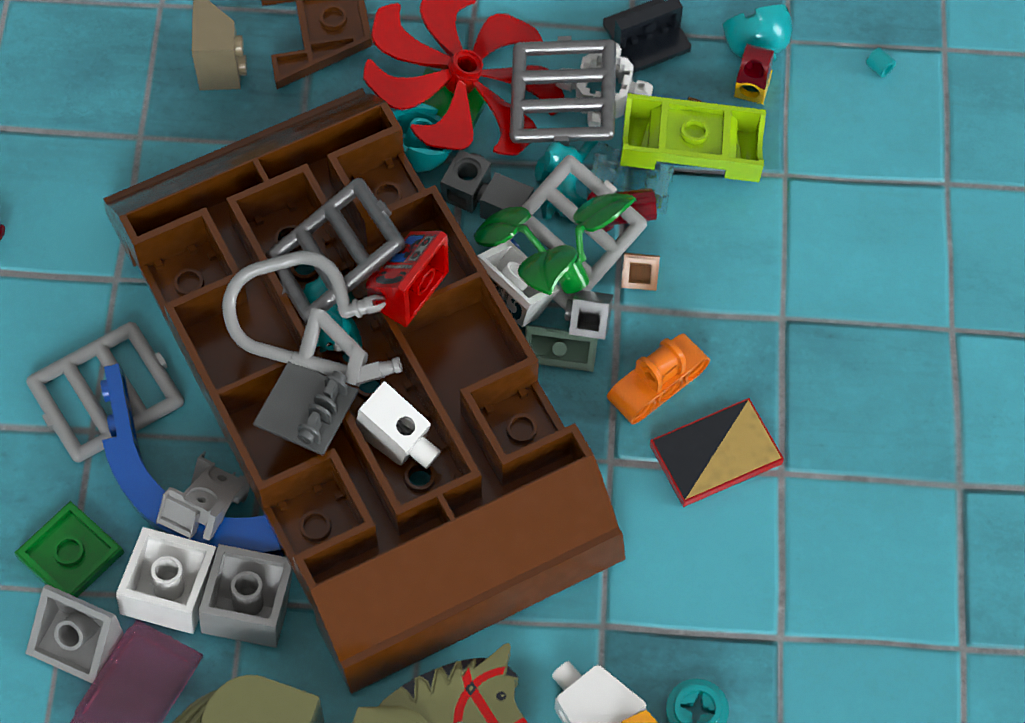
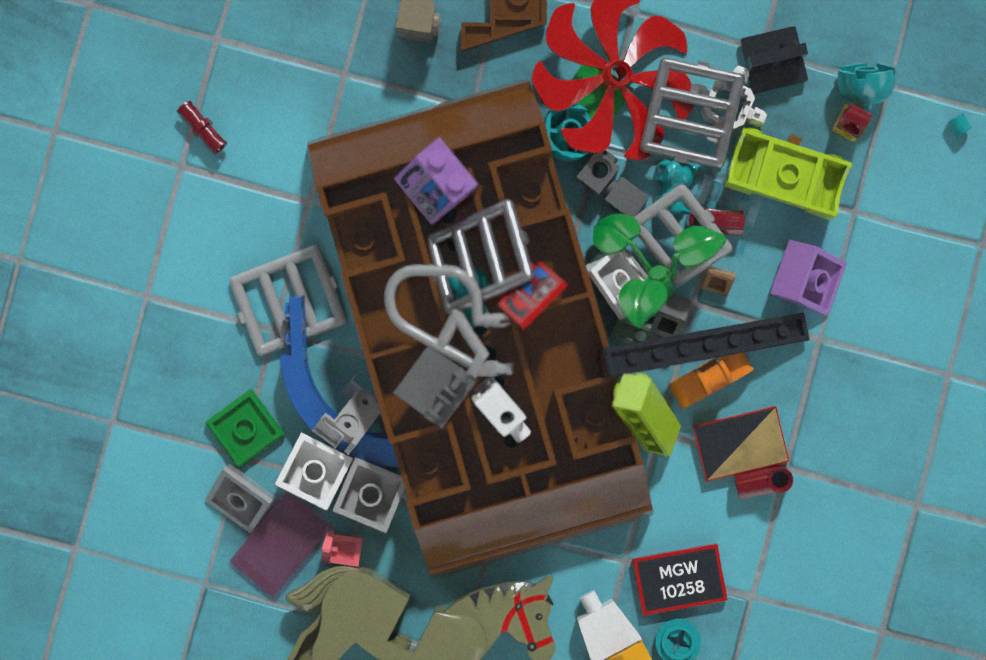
camera: 10 degrees right, 25 degrees up
(213, 673) = (341, 549): none -> coral tile
(266, 176) = (436, 181): none -> medium lavender slope
(582, 399) = (646, 414): none -> lime brick
(636, 323) = (703, 345): none -> black tile
(679, 631) = (679, 579): none -> black tile
(749, 246) = (808, 277): none -> medium lavender slope
(754, 488) = (760, 482): none -> dark red piece

